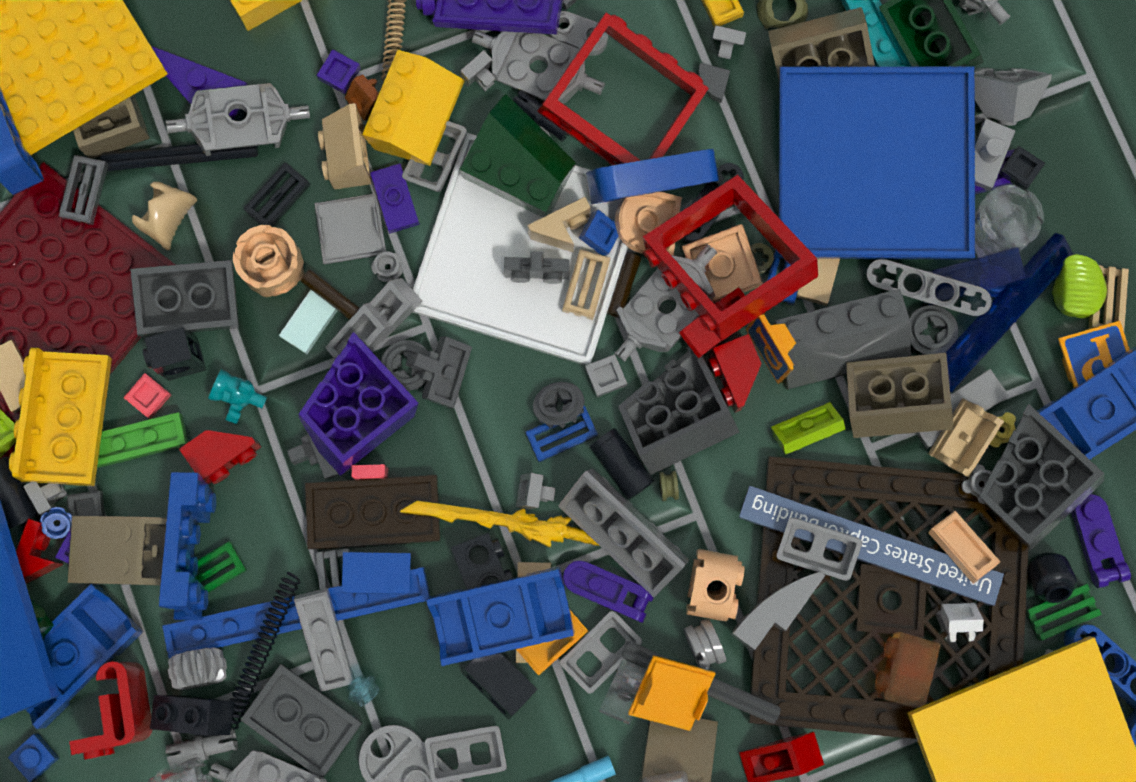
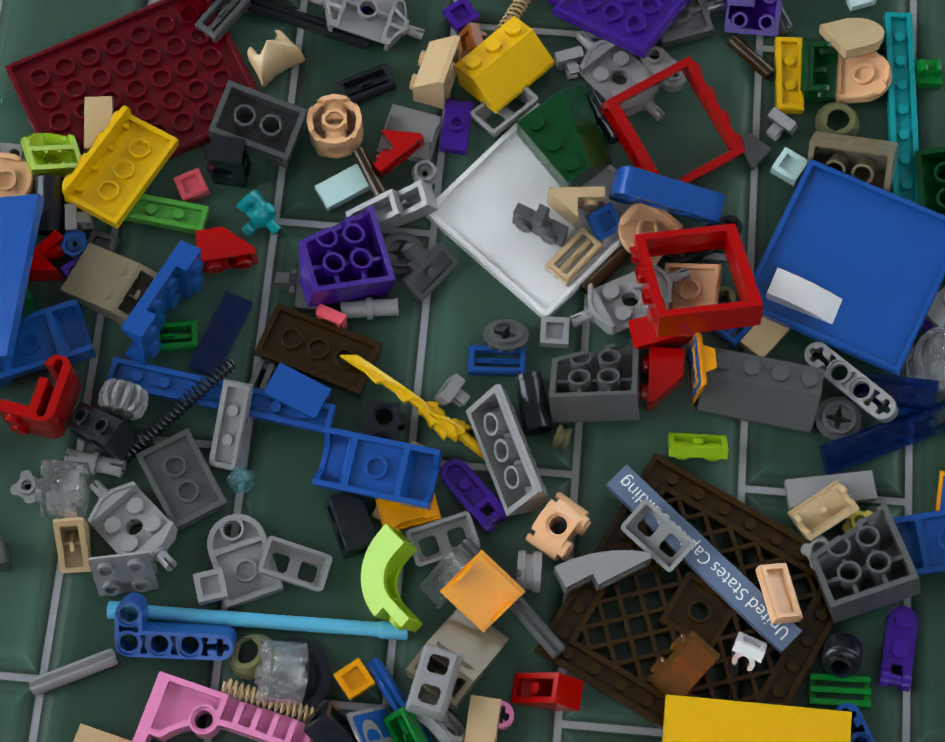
camera: 25 degrees right, 10 degrees down
(262, 544) = (220, 334): none -> clear blue tile
(351, 248) = (403, 146): none -> red slope
(404, 441) = (370, 308): none -> light grey pin
(558, 726) = (380, 576): none -> lime arch
(757, 80) = (789, 166): none -> light aqua tile
(841, 219) = (803, 296): none -> white slope
(899, 395) = (784, 452): dark tan slope -> none

